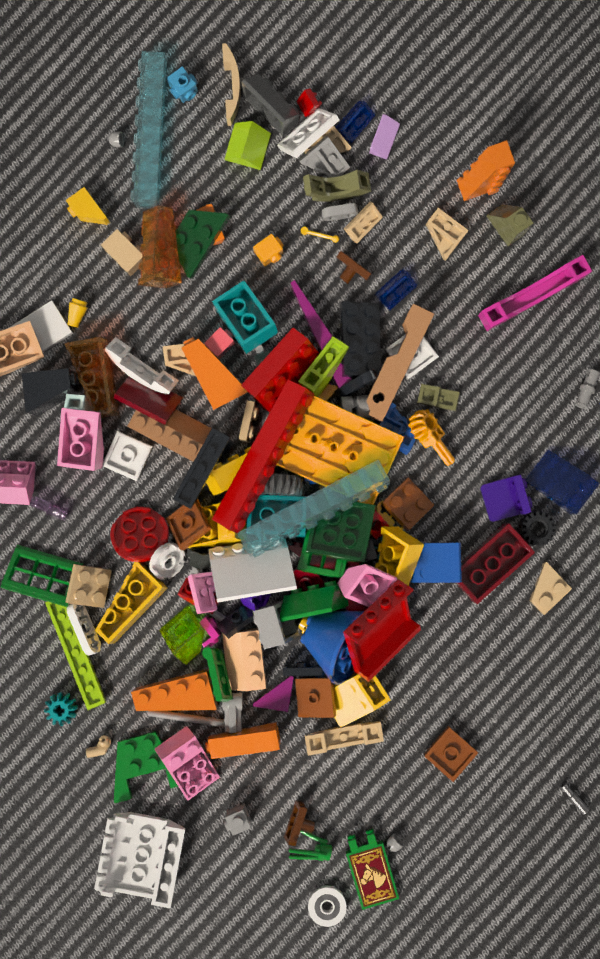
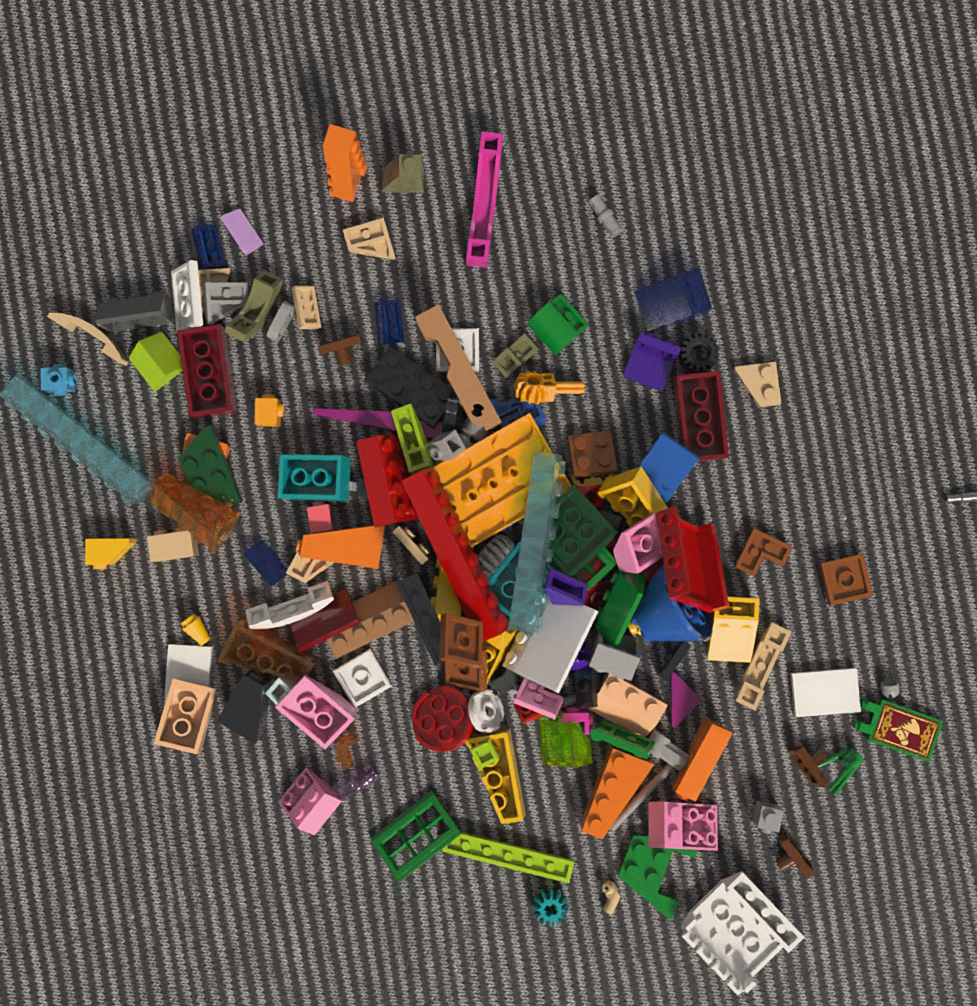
camera: 55 degrees left, 0 degrees up
(63, 482) = (344, 755): none -> clear orange bracket
(88, 586) = (456, 800): tan plate -> none
(90, 630) = (498, 839): white beam -> none
(116, 139) = (63, 476): light grey hinge -> none
(136, 582) = (485, 753): none -> lime tile
(159, 328) = (266, 563): none -> clear blue slope
(204, 504) = (461, 640): none -> dark orange plate
(223, 859) = (794, 856): none -> reddish brown tile
(265, 186) = (207, 372): none -> dark red brick
(295, 553) = (565, 589): none -> dark purple slope
(304, 230) = (275, 365): yellow hinge -> none
(308, 102) = (159, 277): red tile -> none
(315, 697) = (707, 665): dark orange plate -> none
(327, 917) = (912, 800): white tile -> none
(335, 394) = (445, 446): none -> light grey brick
(358, 797) = (825, 692): none -> white tile
(427, 673) = (760, 546): none -> dark orange plate
(483, 411) = (557, 324): none -> green brick

